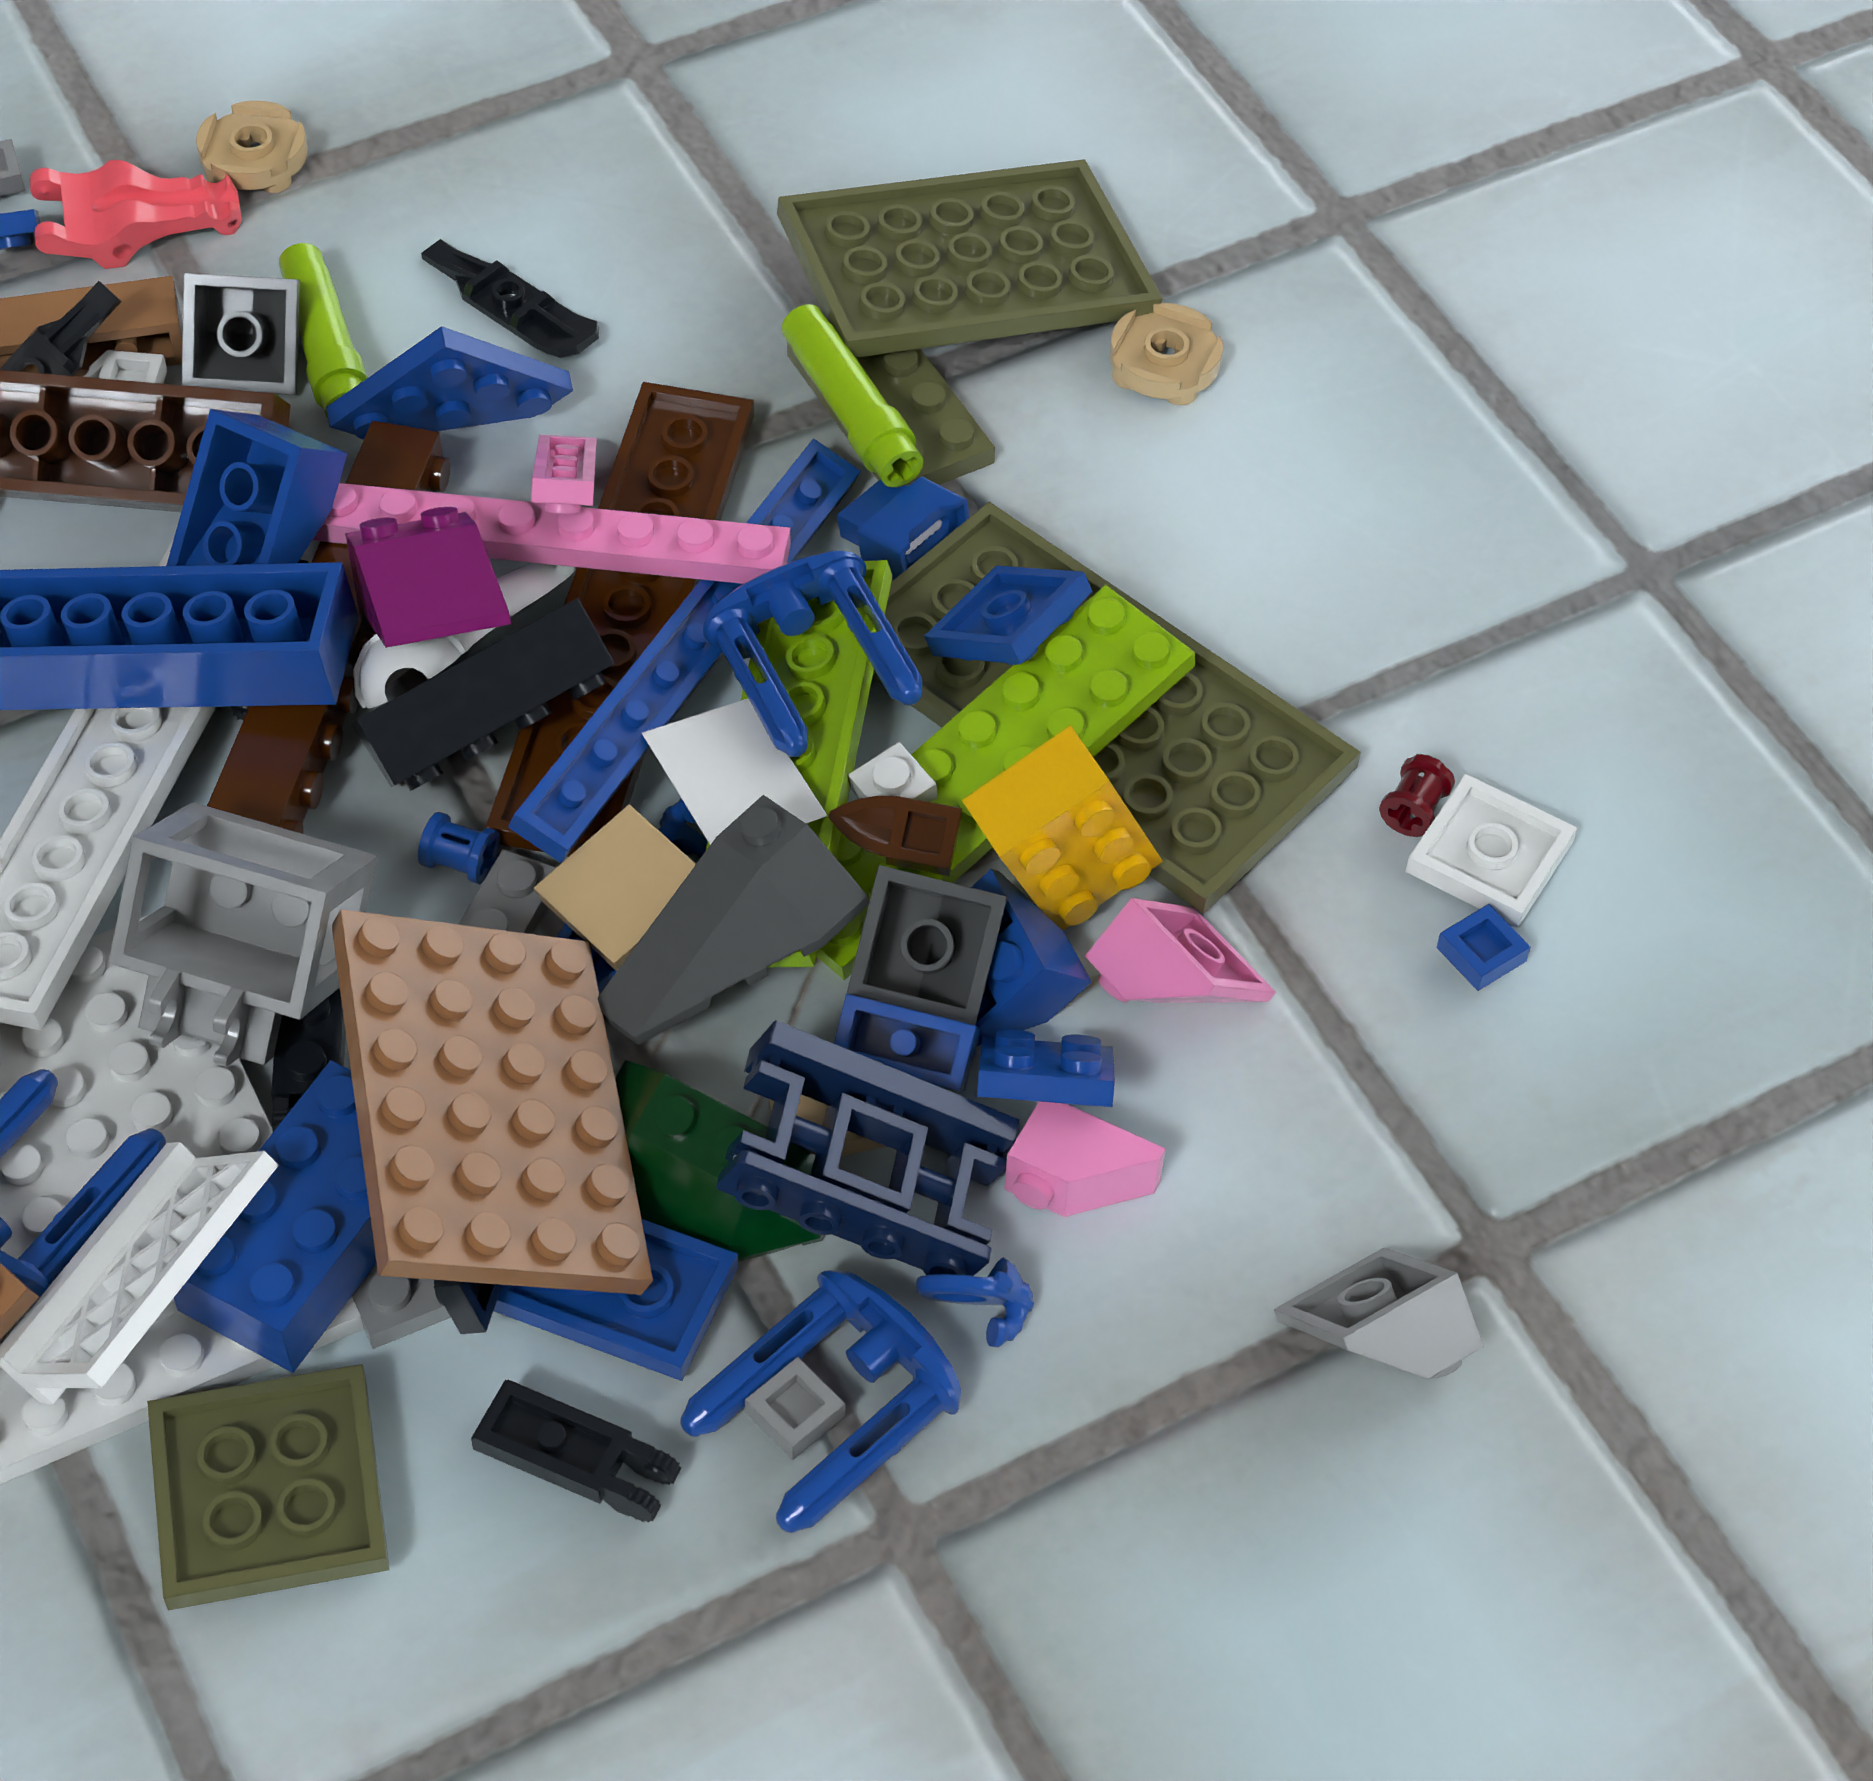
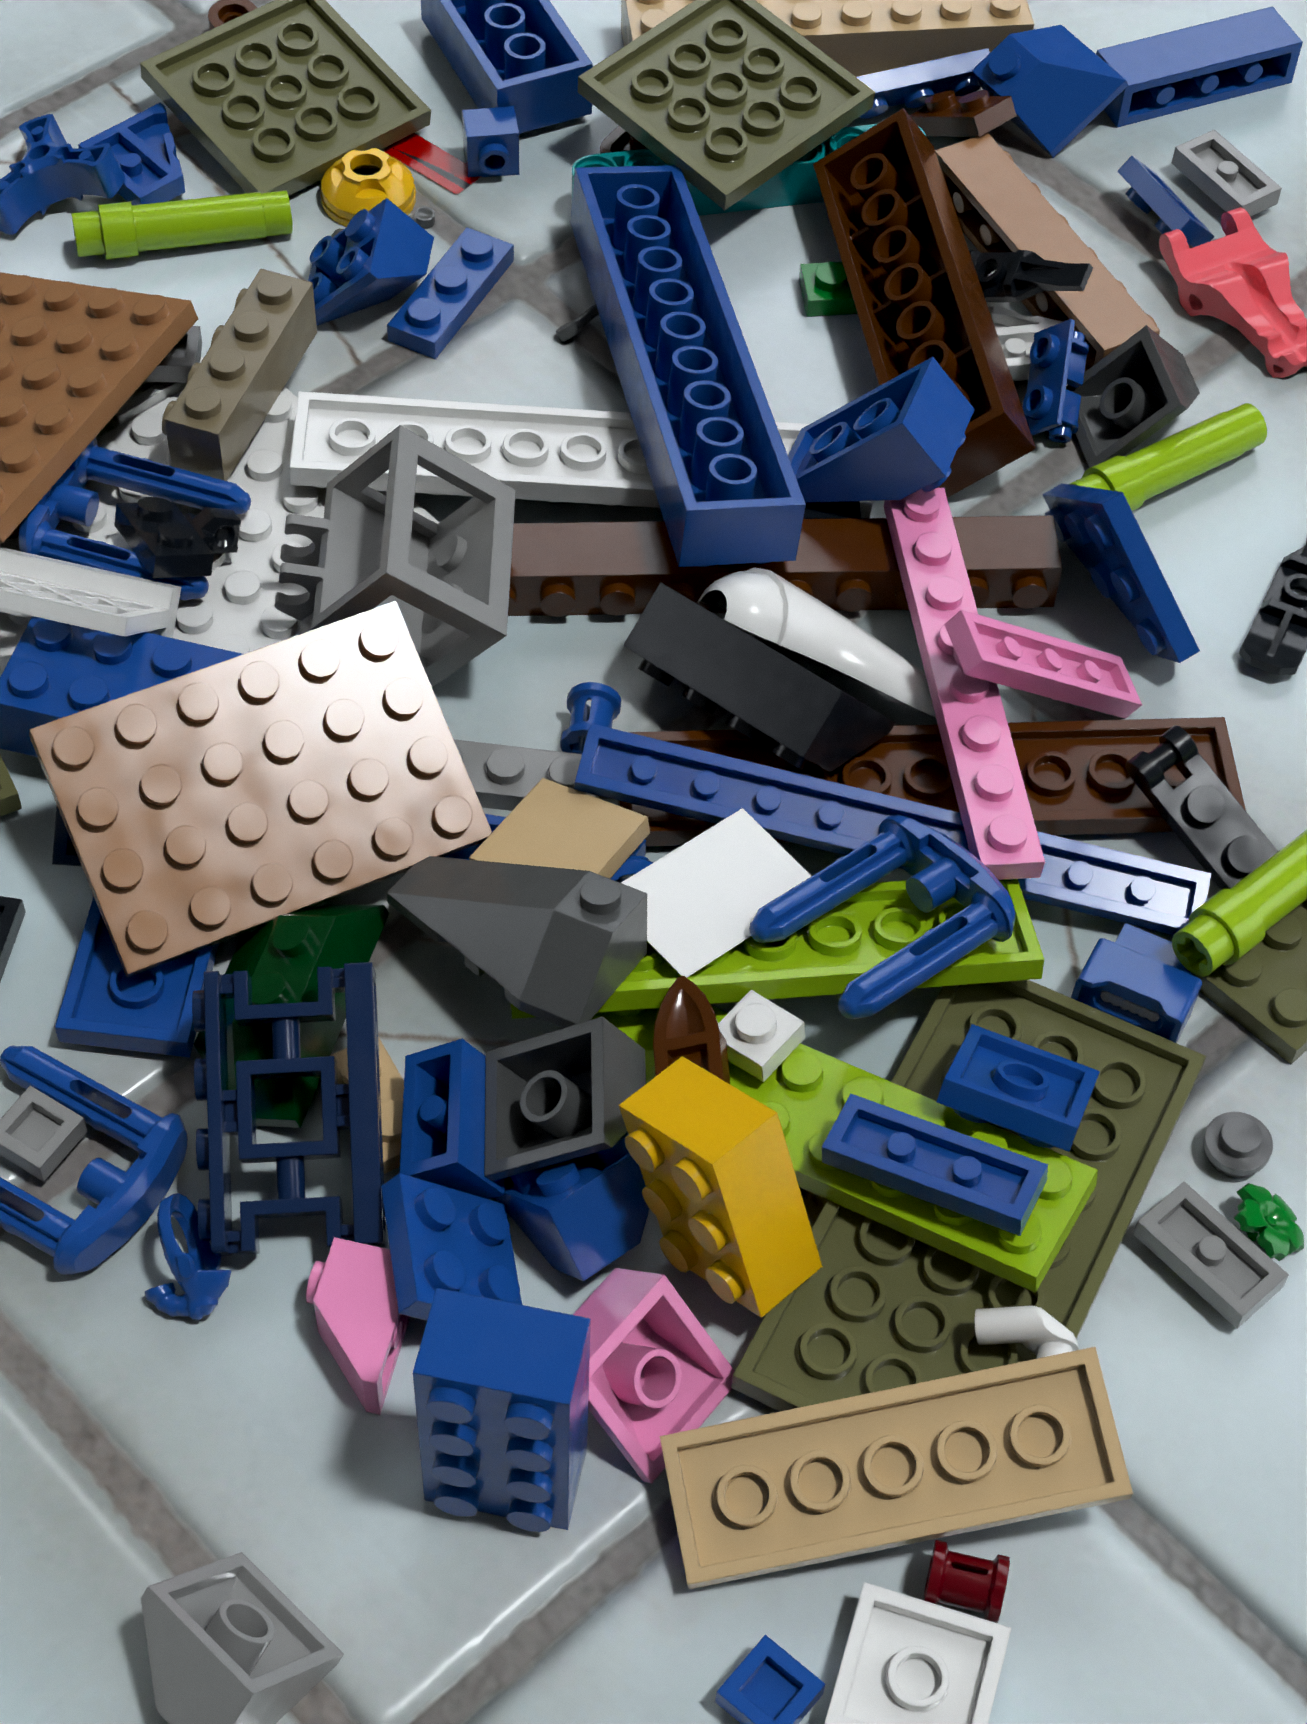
camera: 75 degrees right, 0 degrees up
(83, 1145) = (175, 542): none -> black hinge
(170, 360) = (1056, 361): none -> blue hinge
(425, 577) = (826, 579): magenta slope -> none
(750, 422) = (1200, 809): none -> black plate
(1068, 515) = (1237, 1144): none -> flat silver plate
(1083, 677) = (935, 1164): none -> blue plate
(1148, 516) = (1269, 1221): none -> green plant
(1168, 559) = (1210, 1254): none -> light grey plate
(1227, 678) = (1024, 1325): none -> white arm
(1256, 1024) = (502, 1409): none -> blue brick
(1325, 808) = (894, 1467): none -> tan plate

